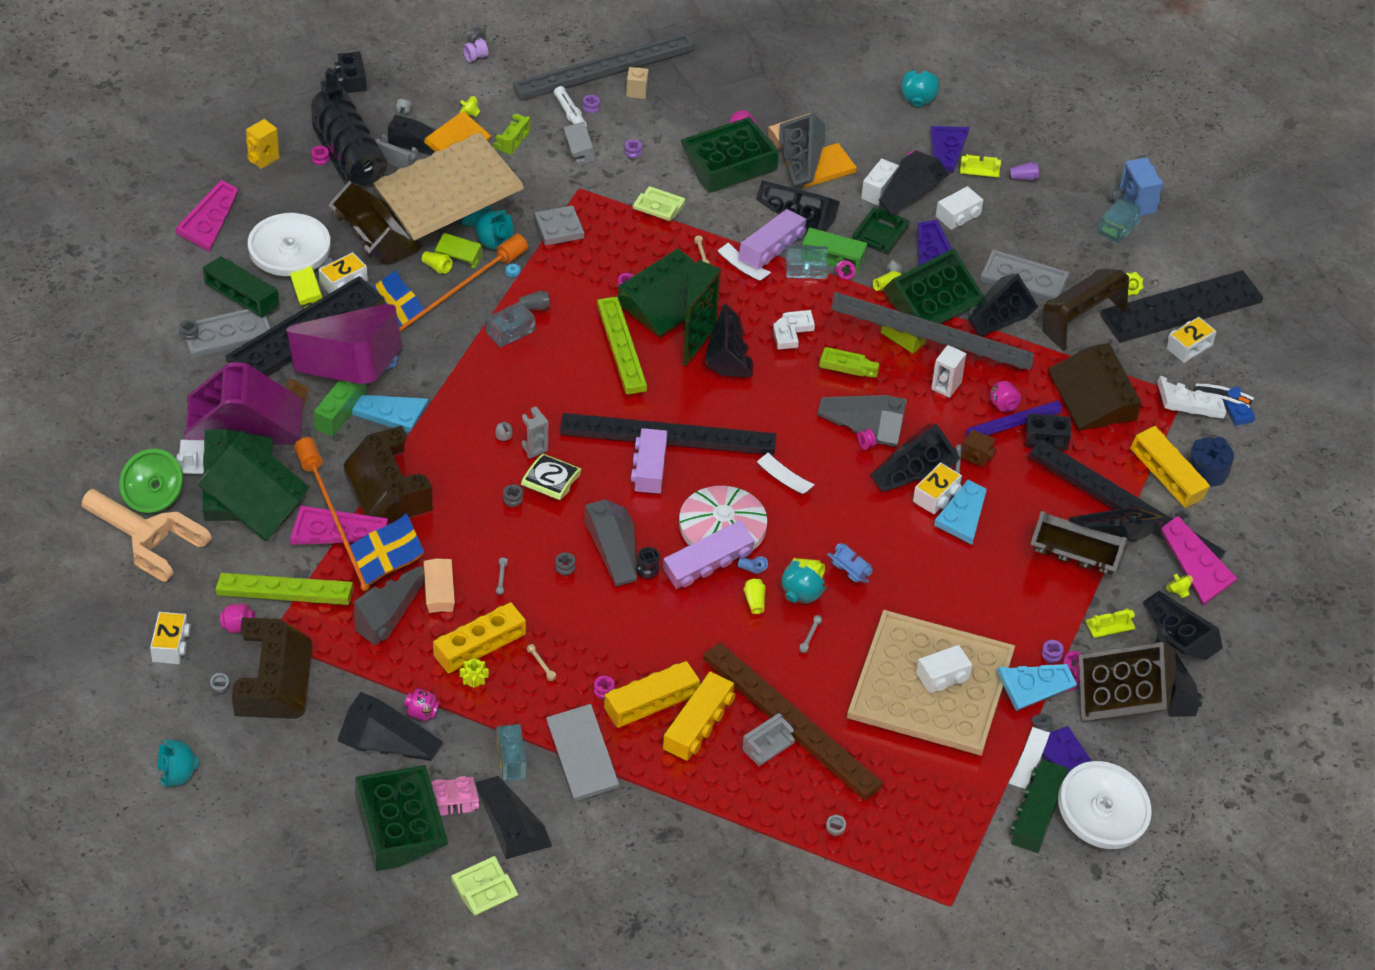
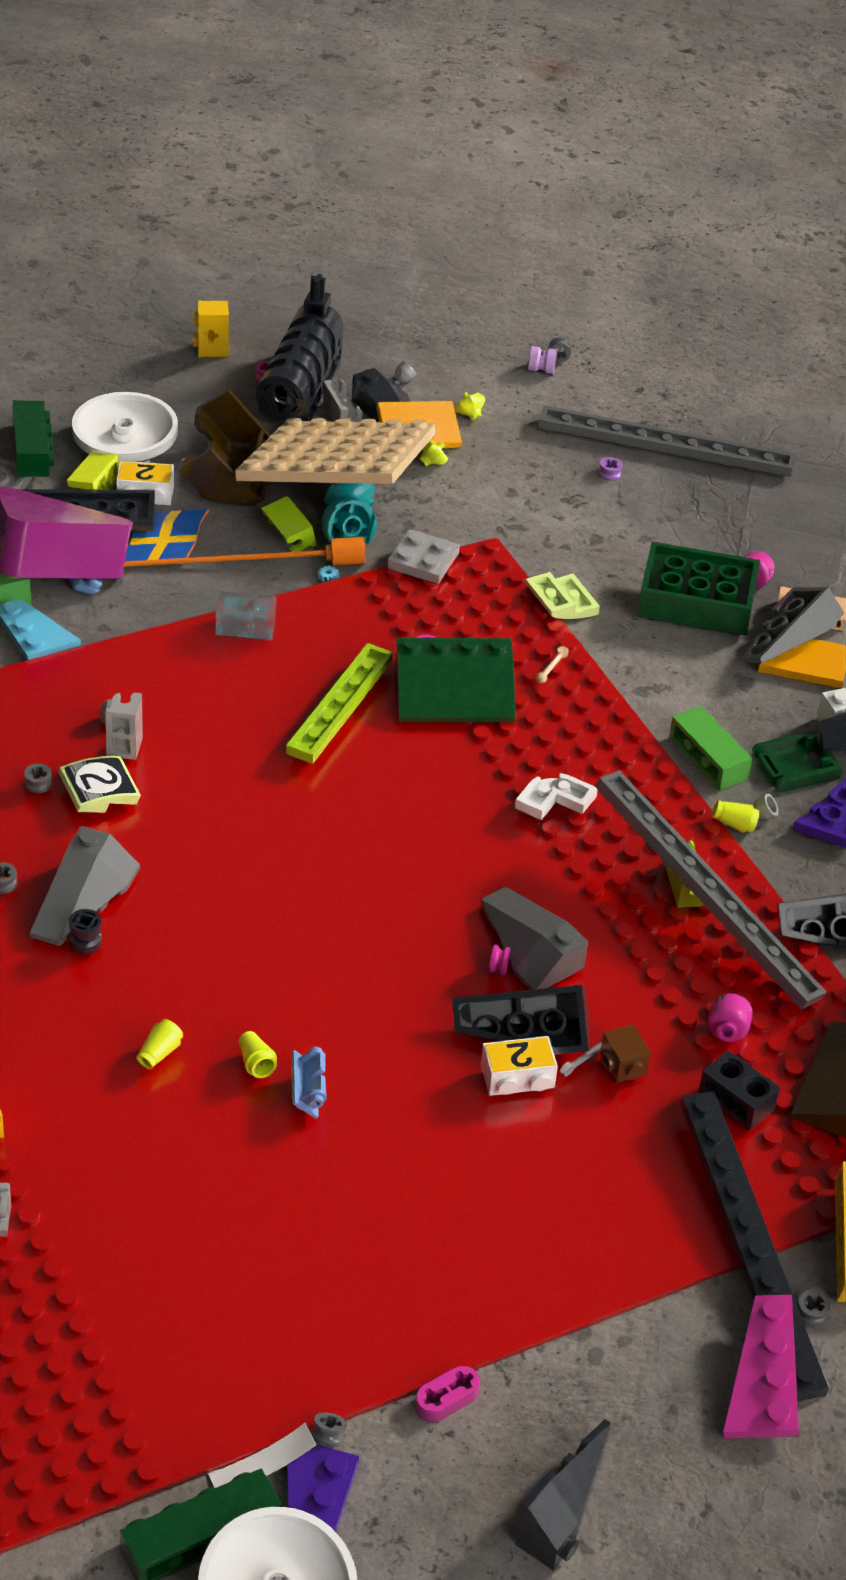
camera: 40 degrees right, 5 degrees down
(208, 217) = (86, 368): dark pink wing -> none
(351, 72) = (389, 317): black brick -> none
(439, 262) = (256, 523): neon yellow cone -> none
(513, 135) = (487, 454): lime hinge -> none
(536, 301) = (304, 610): dark grey cone -> none
(572, 112) = (576, 465): white pin -> none
(580, 143) = (548, 495): light grey hinge -> none
(630, 150) = (604, 531): medium lavender bush -> none
(637, 83) = (680, 472): tan brick -> none
(649, 460) = (222, 832): lavender brick -> none
(676, 433) = (285, 822): black plate -> none
(700, 307) = (437, 703): dark green slope -> none
(708, 554) = (154, 962): lavender brick -> none
(718, 508) = (227, 945): dish -> none
(727, 348) = (457, 773): black wedge -> none
(732, 256) = (585, 700): white sticker -> none
(756, 565) = (201, 1011): medium blue arm -> none
(772, 239) = (642, 694): lavender brick -> none
(784, 475) = (362, 939): white sticker -> none
(801, 584) = (218, 1063): teal cylinder -> none
(804, 646) = (150, 1138): light grey hinge -> none
(805, 731) = (30, 1216): reddish brown plate -> none
(806, 262) = (656, 739): clear light blue panel -> none
(817, 209) = (723, 685): black wedge -> none
(842, 263) = (708, 775): dark pink bush -> none
(848, 363) = (578, 868): lime hinge -> none
(897, 700) = (244, 1281): tan plate -> none
(935, 289) = (777, 852): dark green slope -> none
(944, 669) = (260, 1269): white brick -> none
(948, 371) = (682, 943): white brick -> none
(963, 512) = (522, 1114): medium azure wing -> none
(1015, 419) = (711, 1051): dark purple axle -> none
(1033, 684) = (366, 1372): medium azure wing -> none
(1052, 645) = (434, 1356): medium lavender bush -> none
(1079, 543) = (618, 1232): dark brown windscreen -> none
(1111, 623) = (565, 1372): neon yellow hinge -> none
(1122, 522) = (709, 1257): black wedge -> none
(1126, 681) = (477, 1450): dark brown slope -> none
(1180, 585) = (713, 1388): neon yellow piece -> none
(1183, 627) = (645, 1447): black wedge -> none

